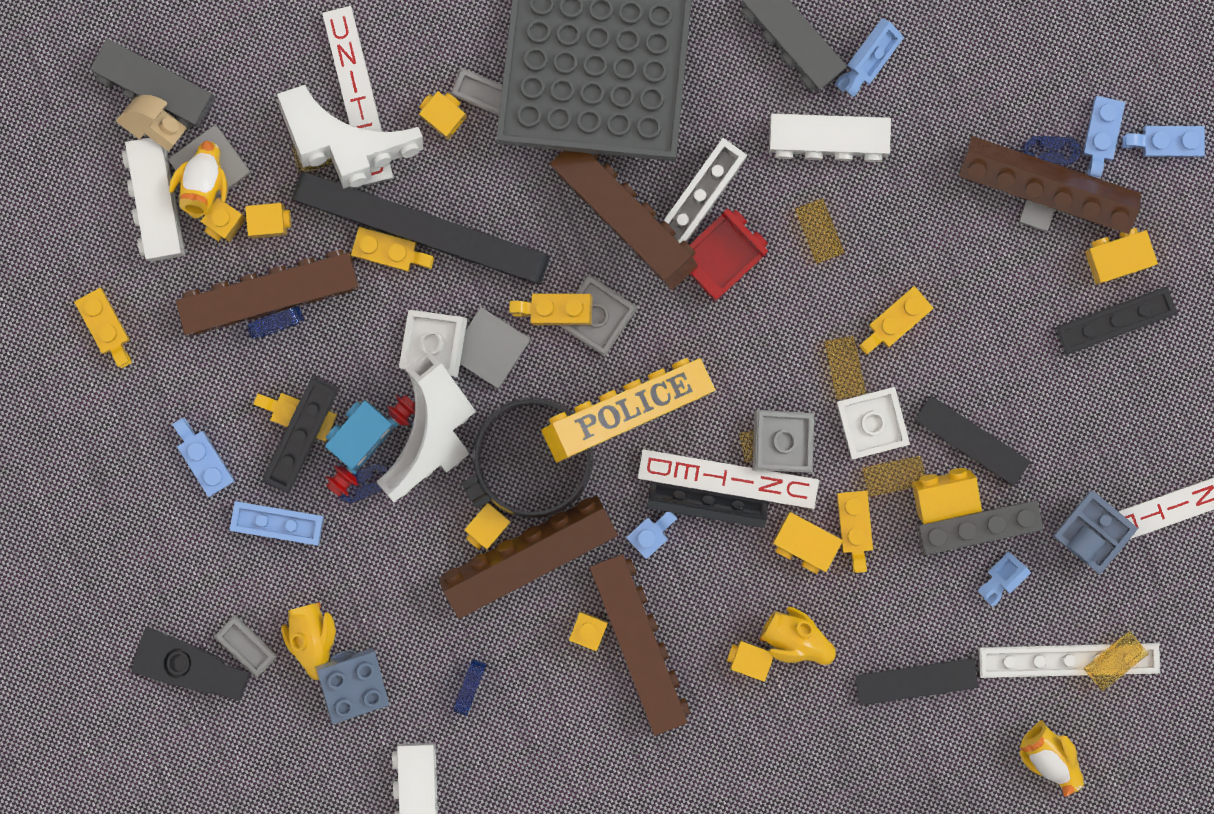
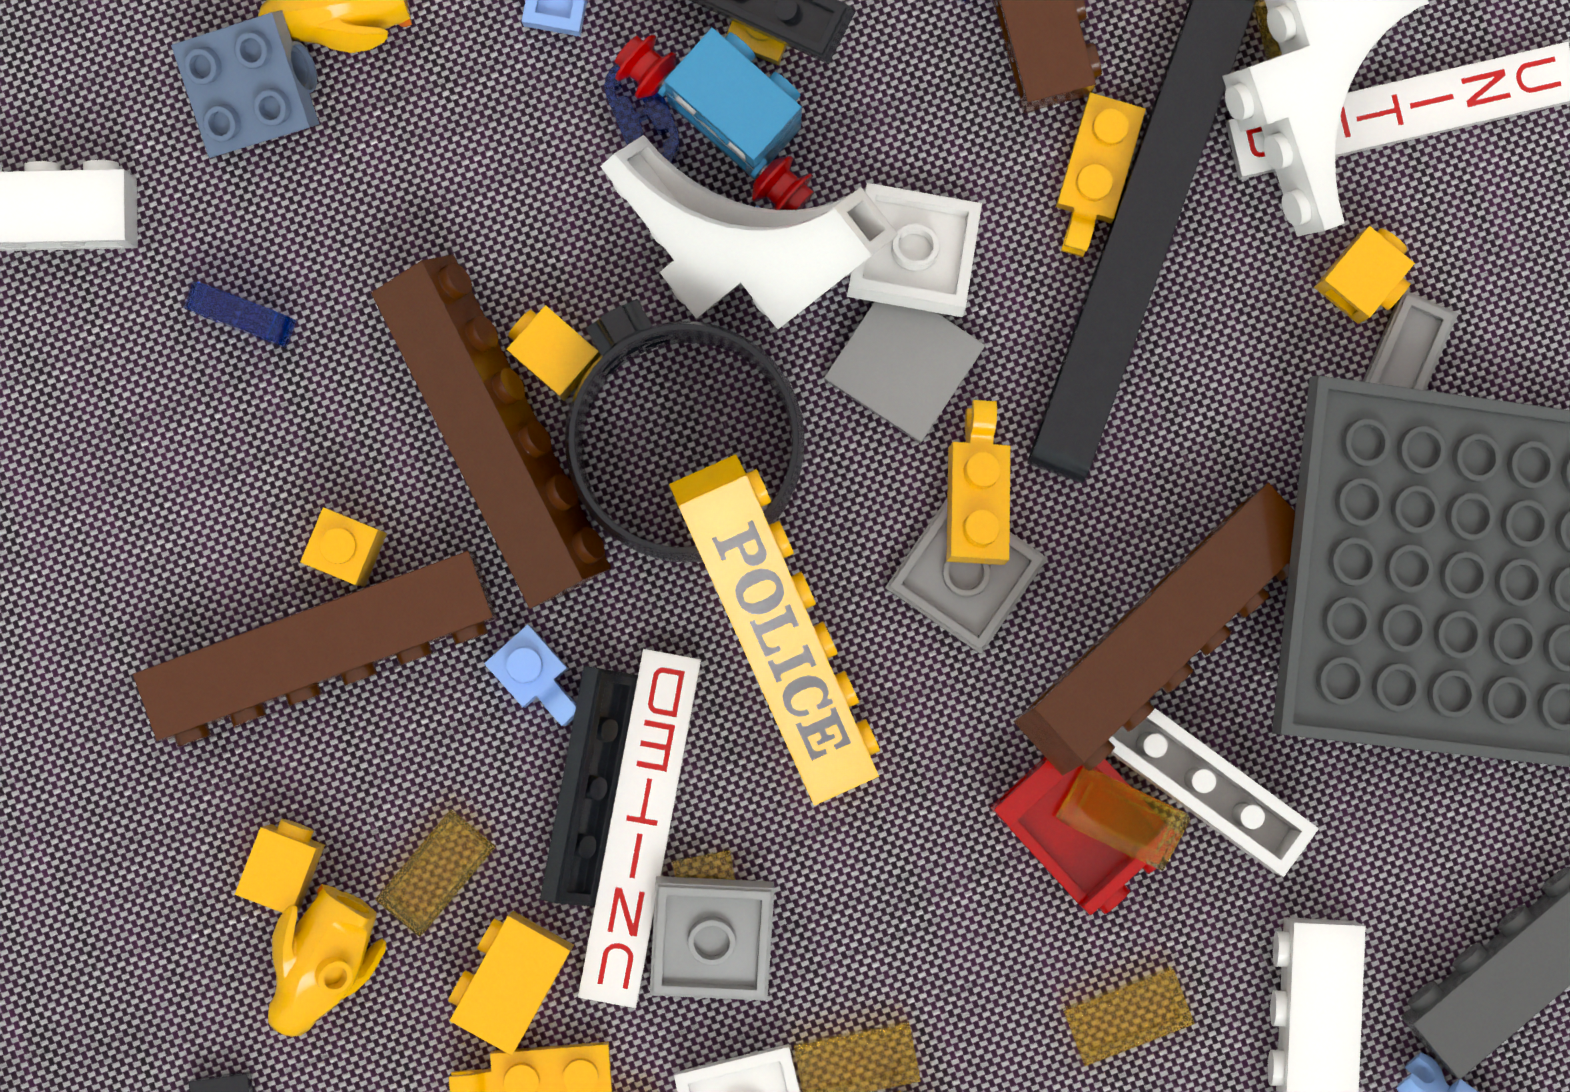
camera: 80 degrees right, 0 degrees up
(719, 234) = (1123, 818): none -> clear yellow tile
(752, 582) = (435, 873): none -> clear yellow tile

